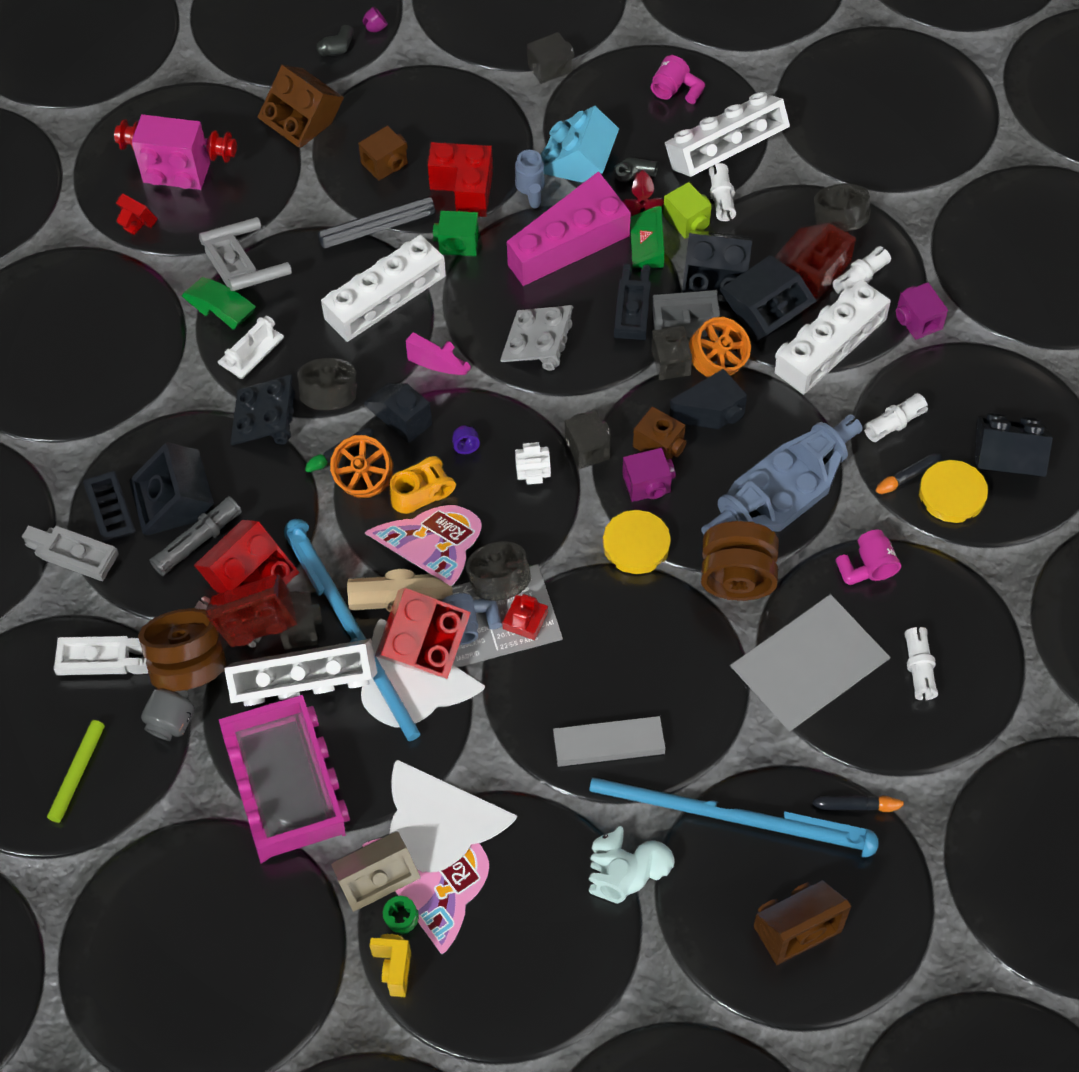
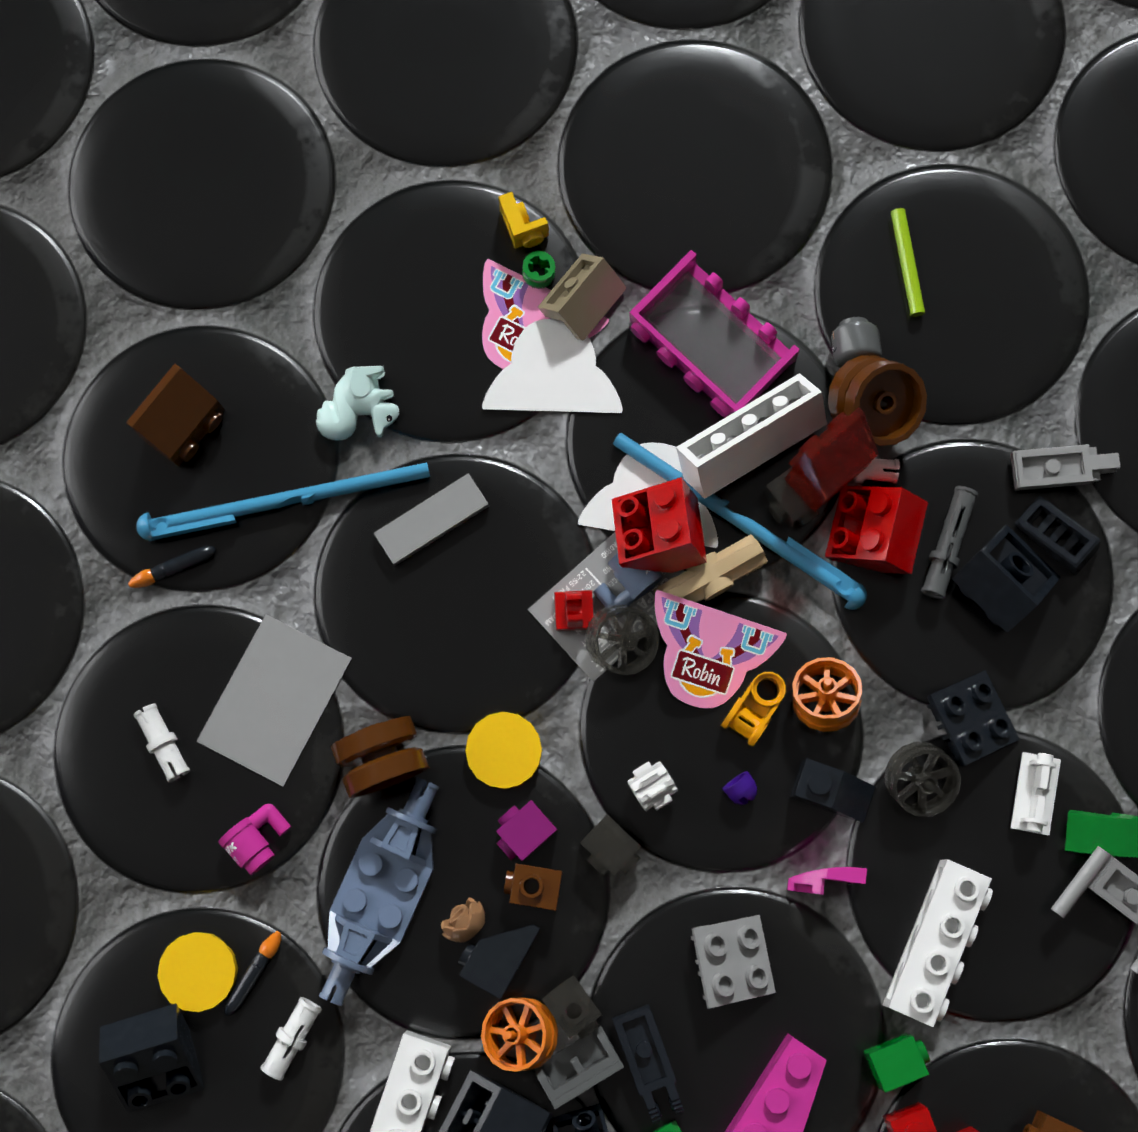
camera: 155 degrees right, 20 degrees up
(98, 656) = (964, 372): white hinge -> none
(321, 461) = (866, 714): piece -> none
(376, 222) = (1000, 1038): axle -> none
(726, 437) = (464, 921): none -> medium nougat plate

